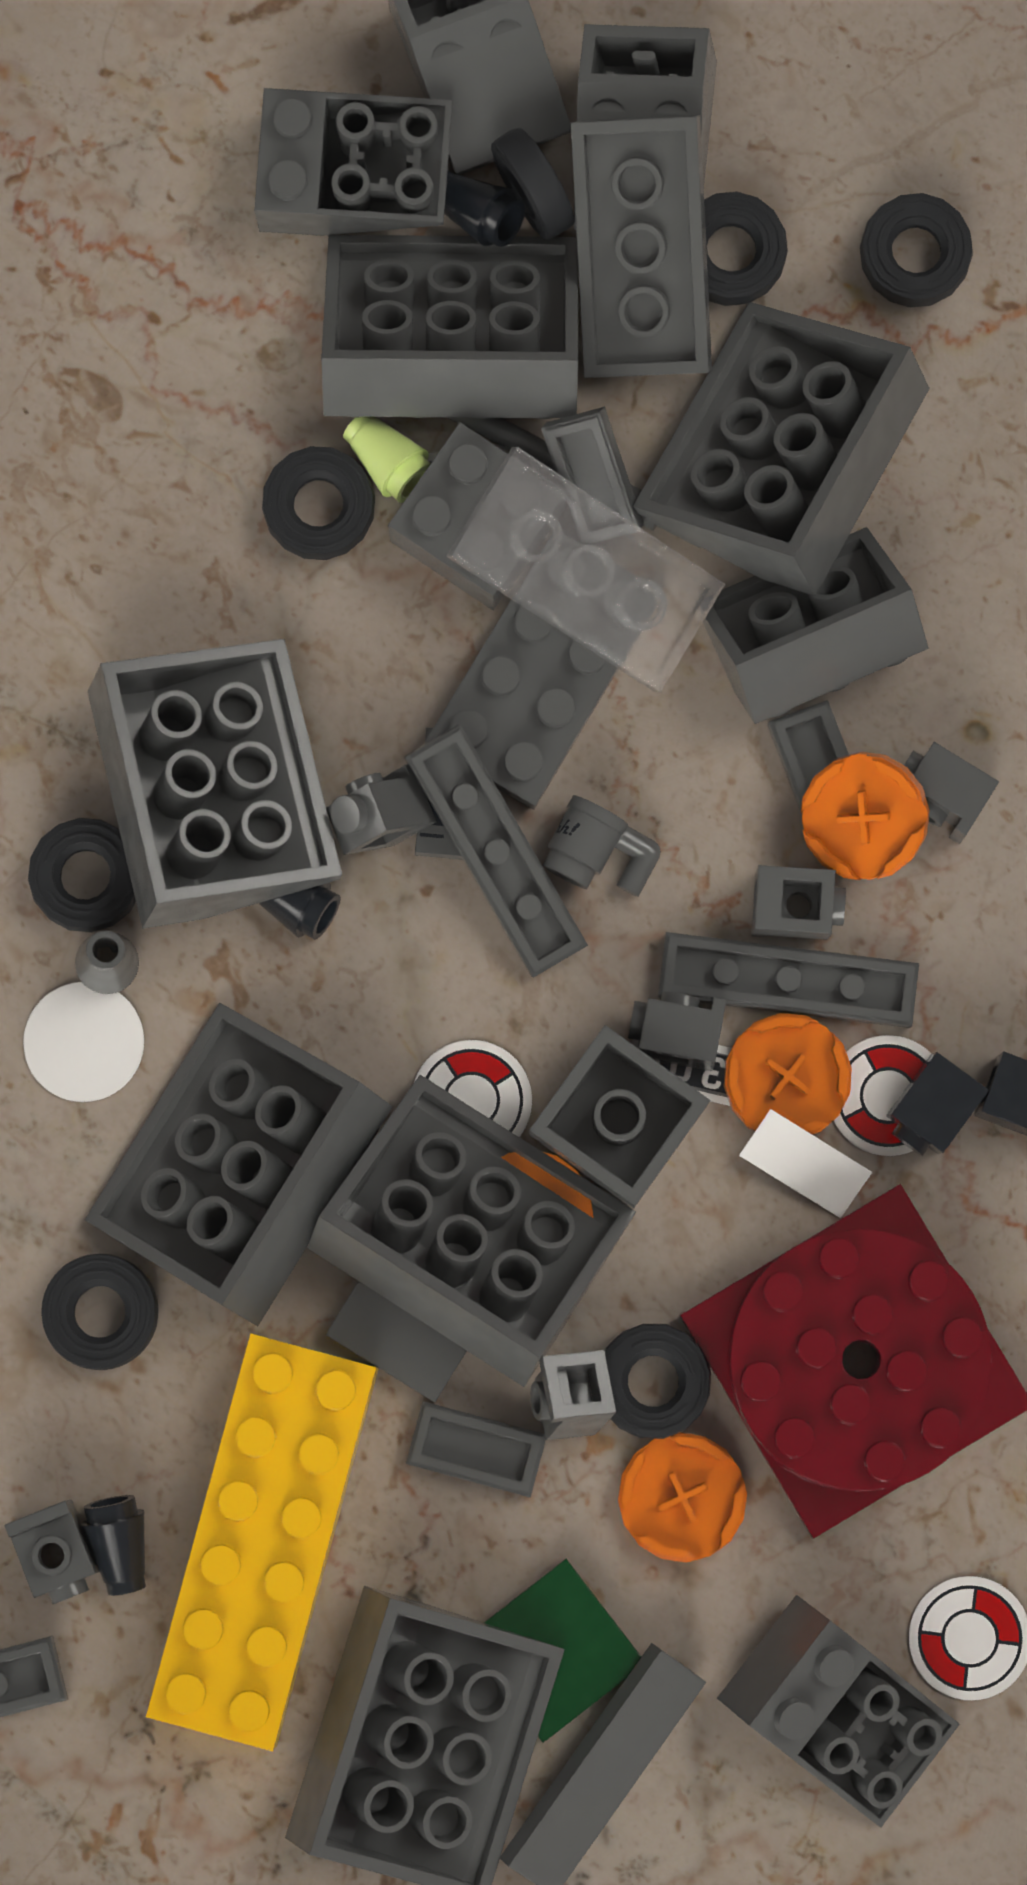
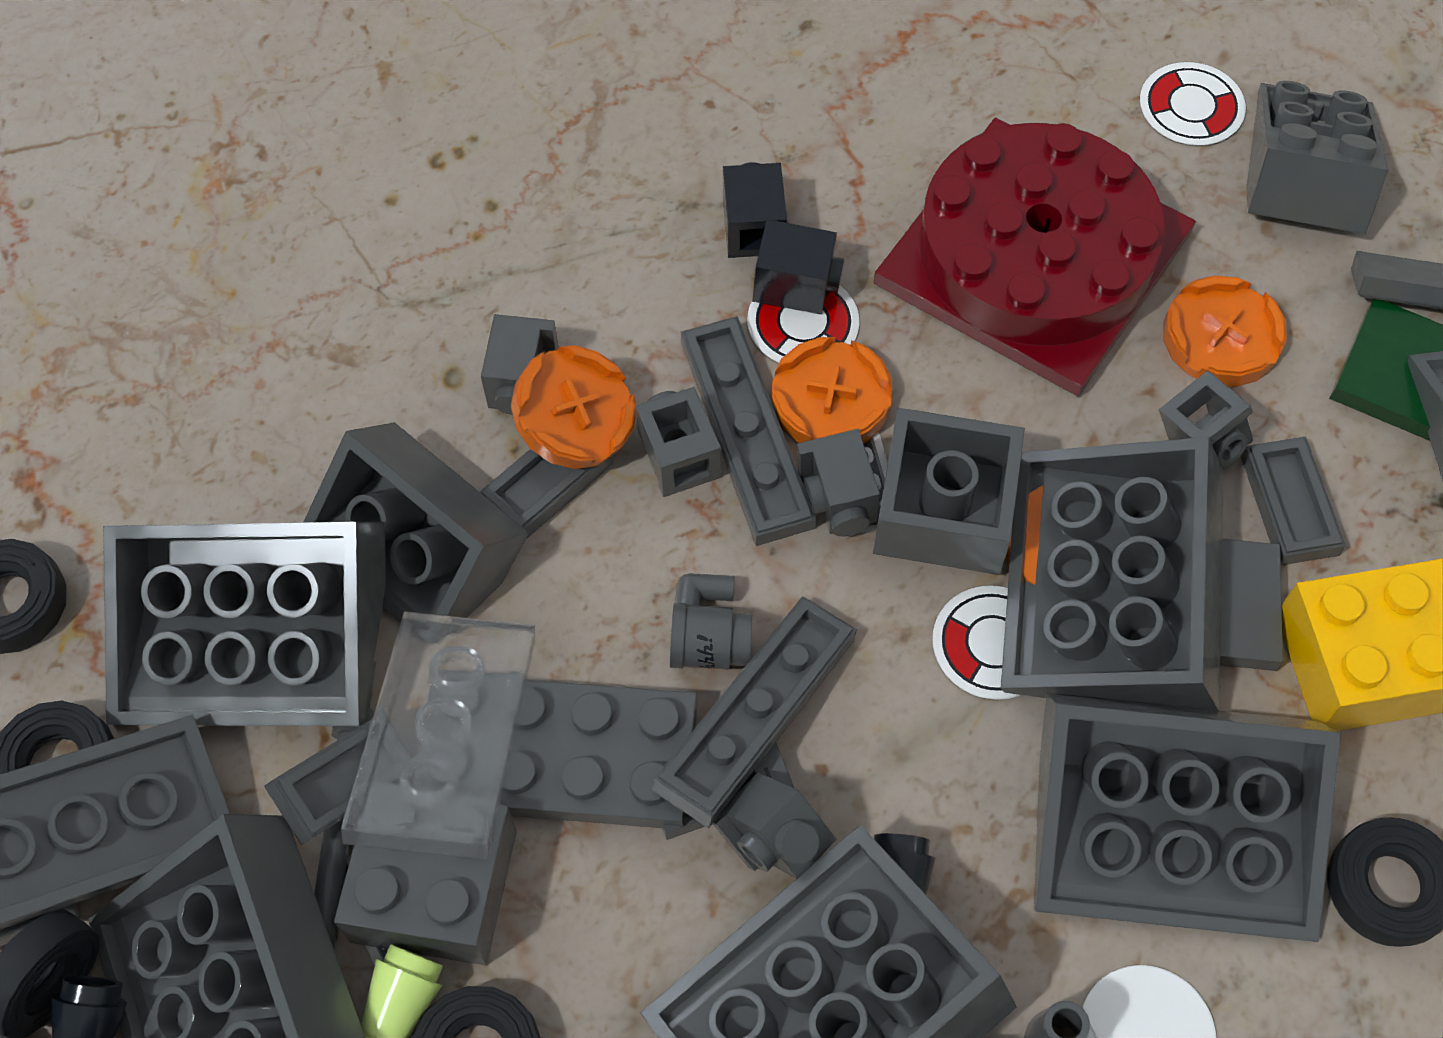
camera: 115 degrees left, 20 degrees down
(692, 1372) = (1136, 354): black tyre -> none
(805, 1163) = (898, 348): white sticker -> none

